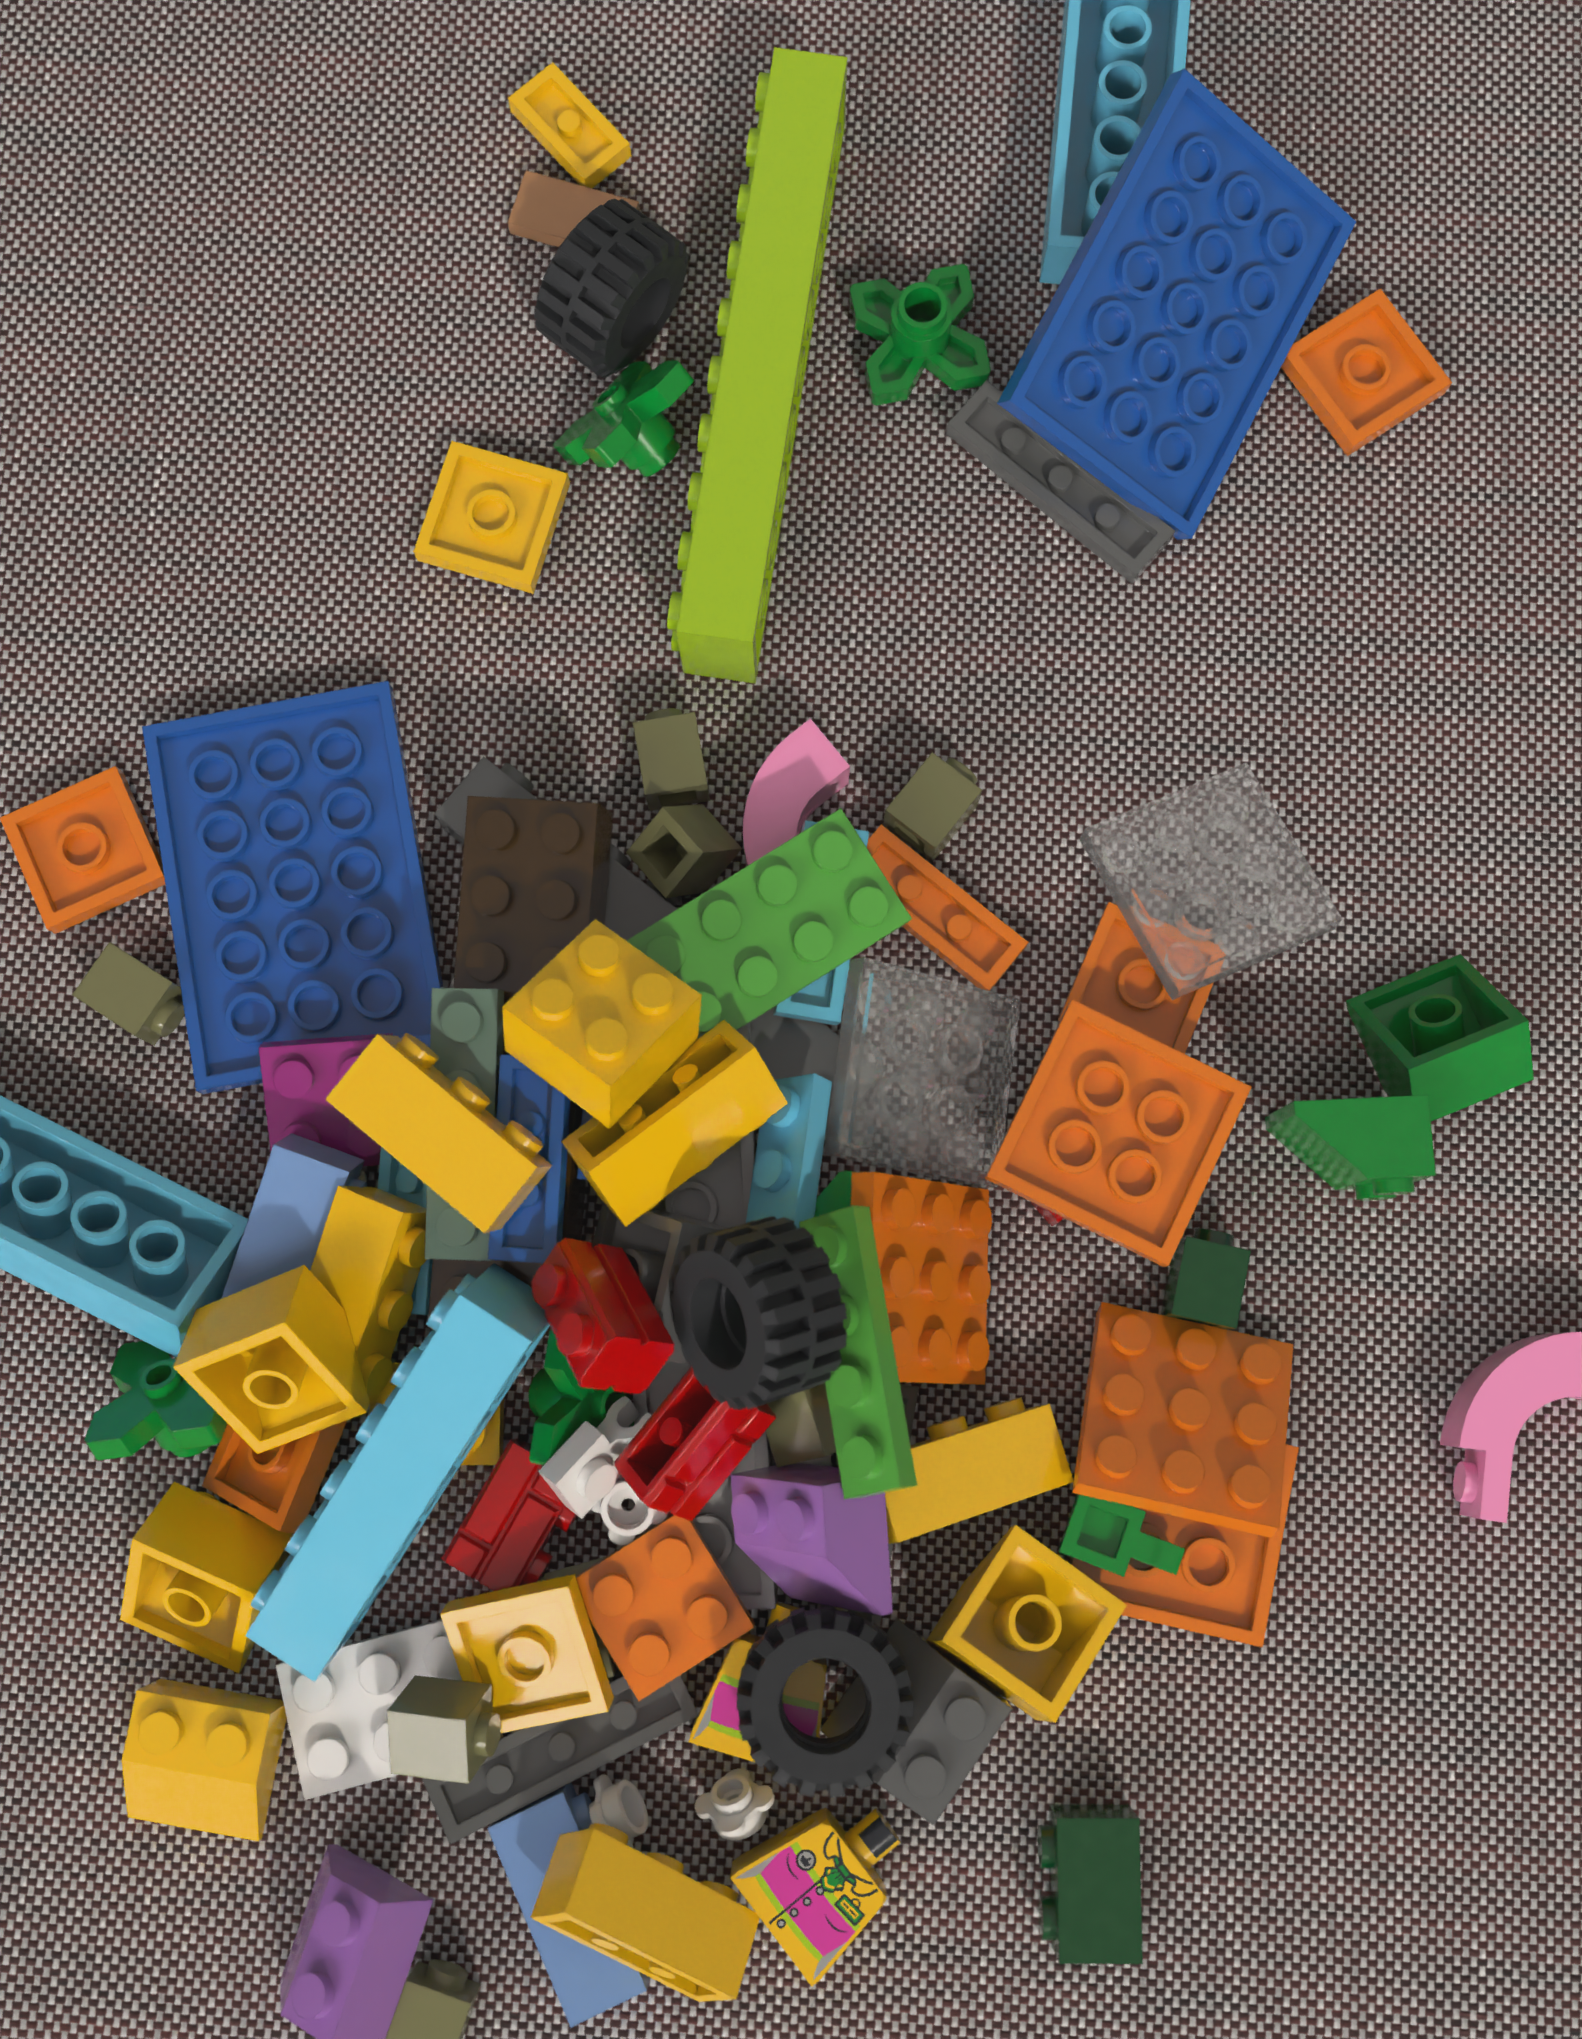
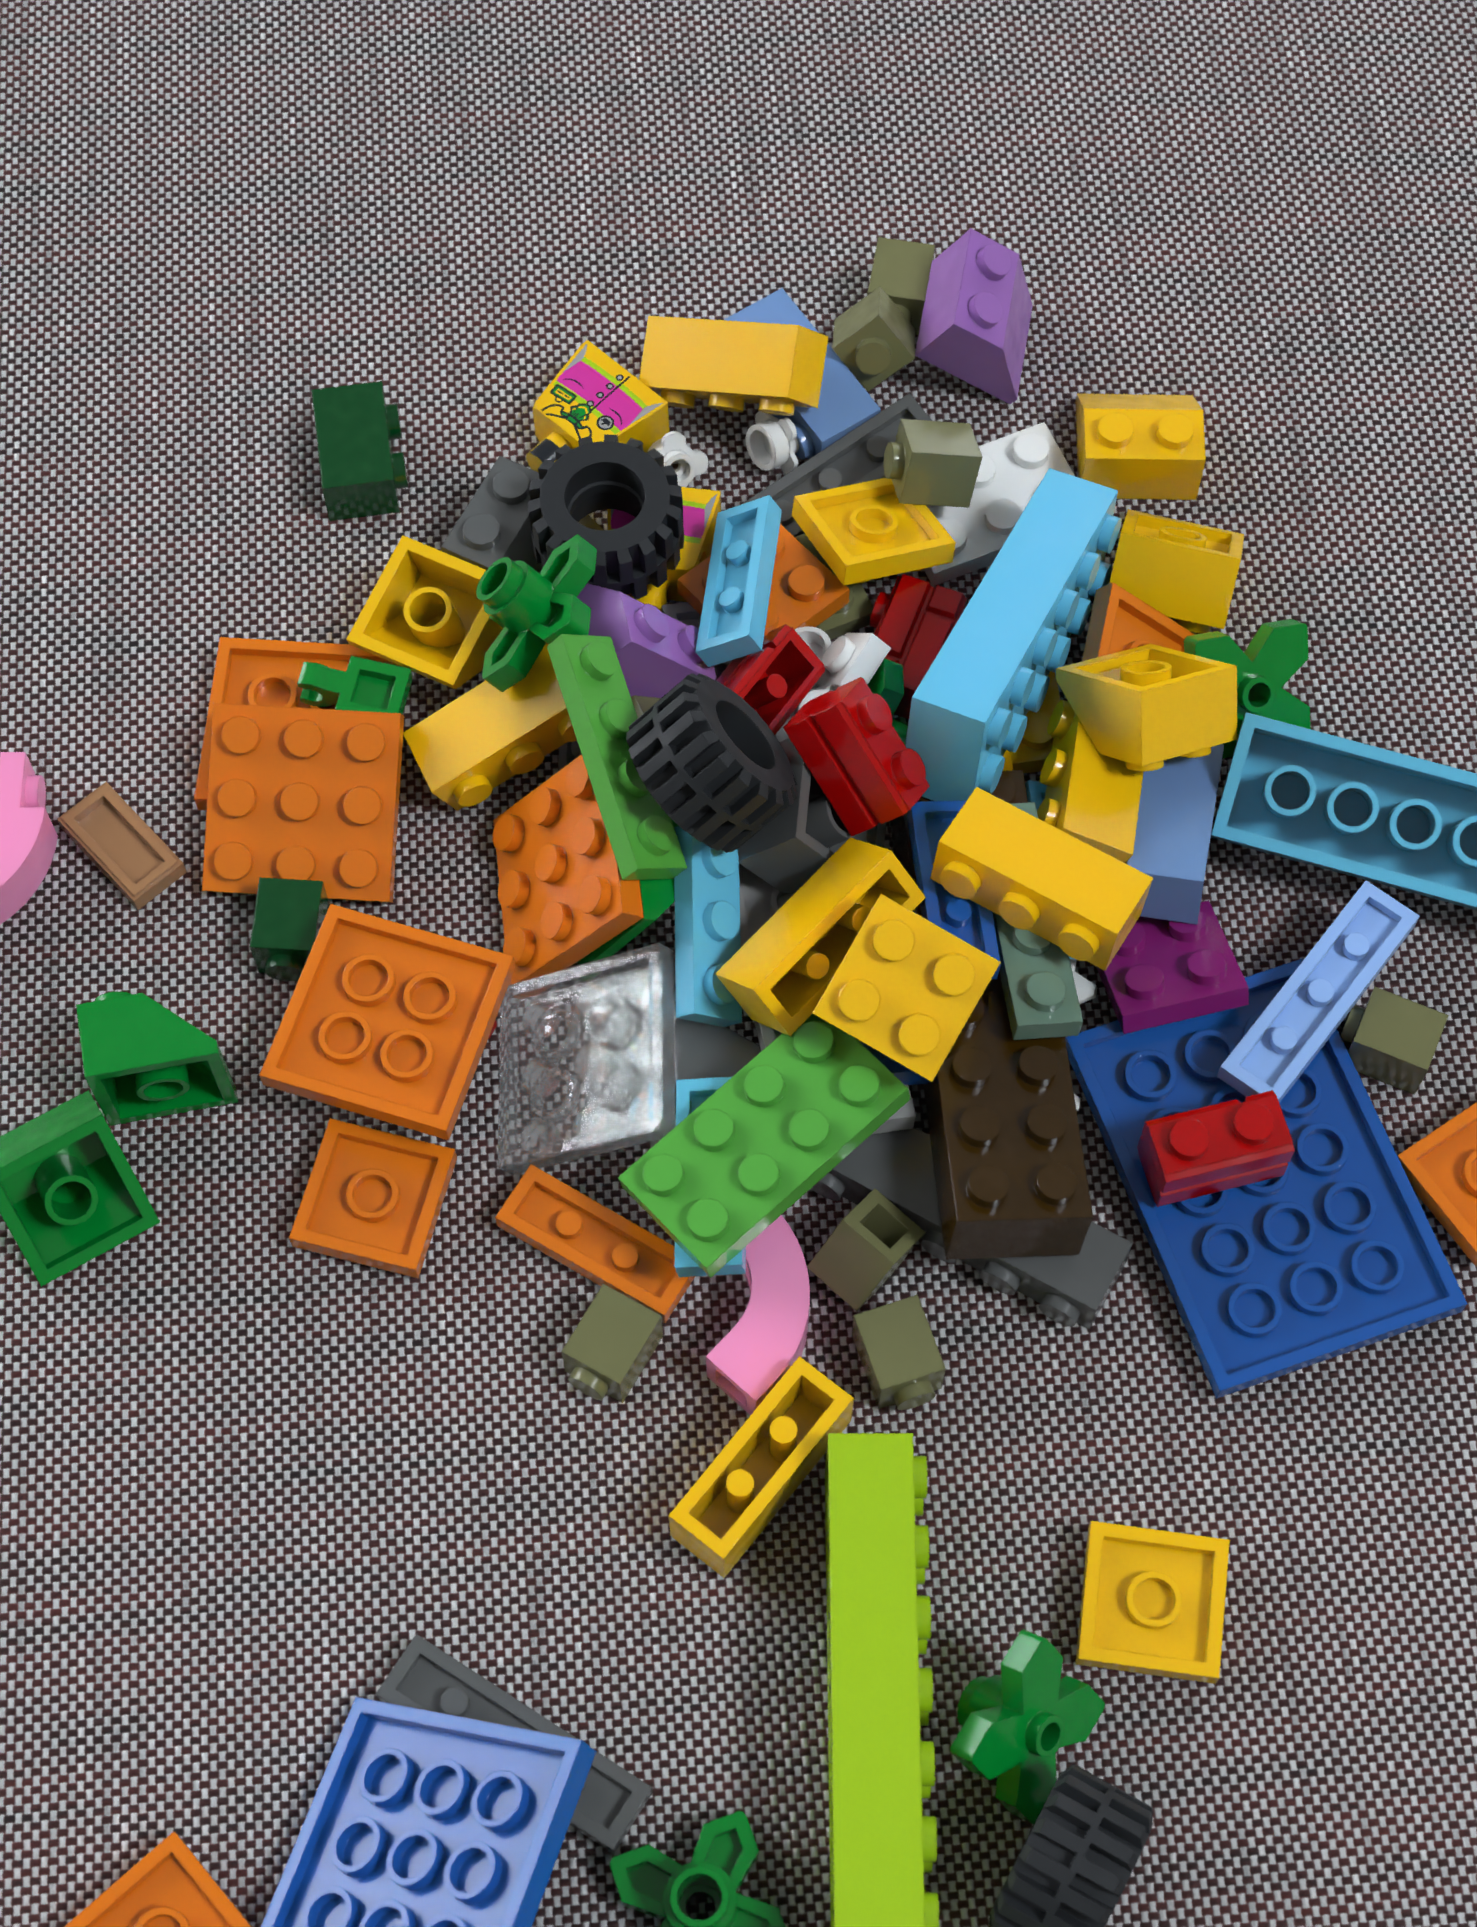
camera: 170 degrees right, 15 degrees down
(190, 1035) = (1319, 994): none -> light blue plate
(333, 885) = (1215, 1148): none -> red brick
(475, 1935) = (874, 339): none -> olive brick
(688, 1584) = (739, 581): none -> medium azure plate
(814, 664) = (760, 1467): none -> yellow brick
(922, 1562) = (534, 608): none -> green plant
(1209, 880) = (311, 1301): clear plate -> none
(1374, 1417) = (122, 845): none -> medium nougat tile

